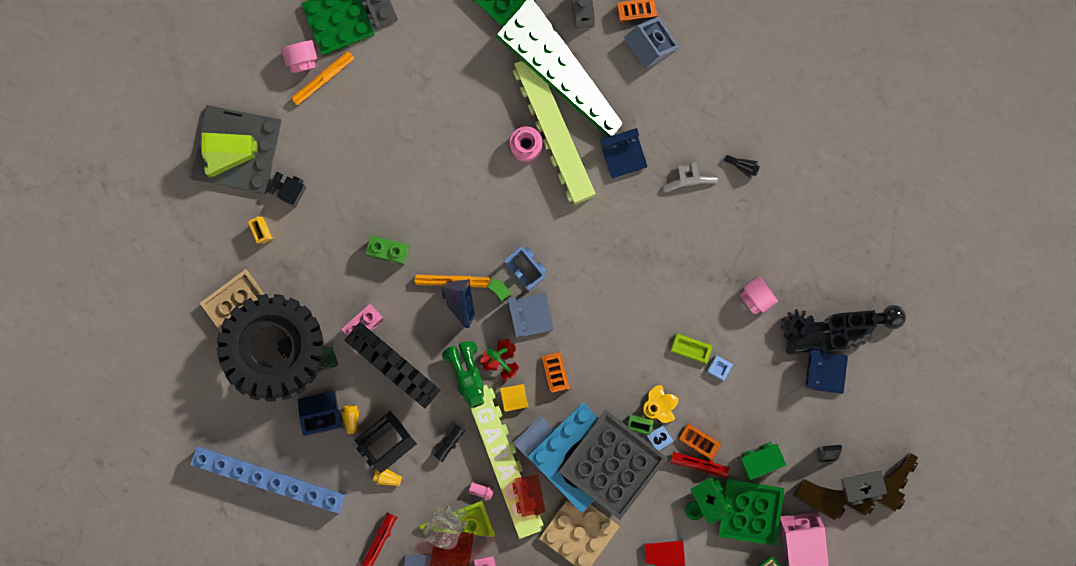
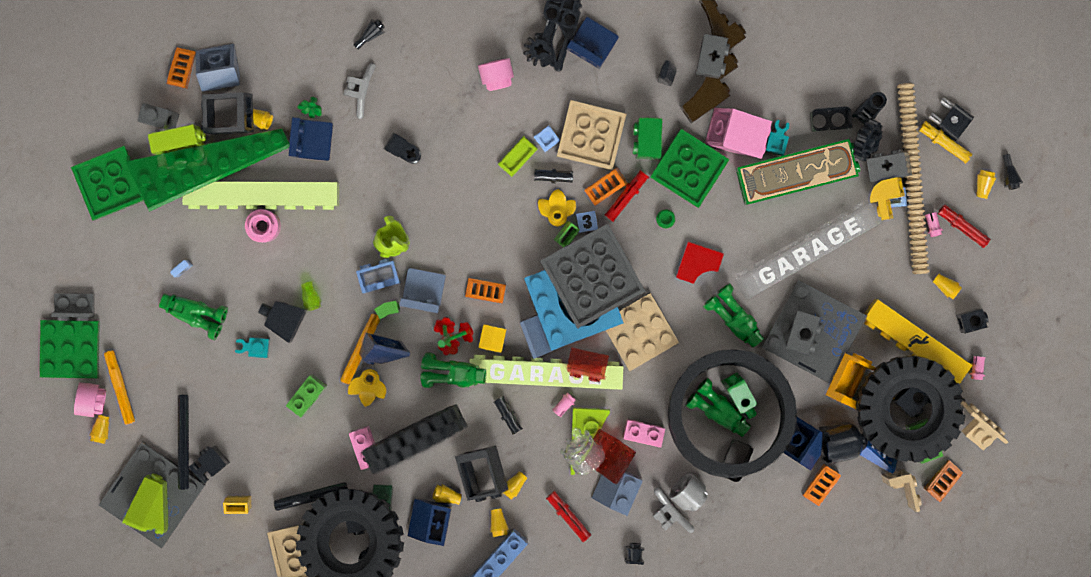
camera: 65 degrees left, 5 degrees up
(276, 77) = (100, 430): none -> yellow cone
(293, 289) = (307, 497): none -> black axle
(296, 157) = (183, 442): none -> black axle
(344, 478) = (498, 523): none -> yellow cone
(412, 185) = (257, 347): none -> teal plate
(416, 303) = (367, 390): none -> yellow plate
(419, 113) = (191, 311): none -> green piece
(449, 199) = (283, 319): none -> black torso
(455, 87) = (181, 268): none -> light blue tile
(479, 215) = (310, 296): none -> clear neon green cone
(565, 265) = (391, 238): none -> lime helmet
(570, 33) = (176, 139): none -> lime window
(621, 83) = (244, 113): none -> black window
(622, 98) = (262, 119): none -> yellow cone
(652, 141) = (310, 107): none -> green plant
(652, 238) = (400, 147): none -> black piece
(688, 389) = (553, 175): none -> black pin
(703, 495) = (656, 205): green brick -> none
(741, 407) = (591, 135): none -> tan plate

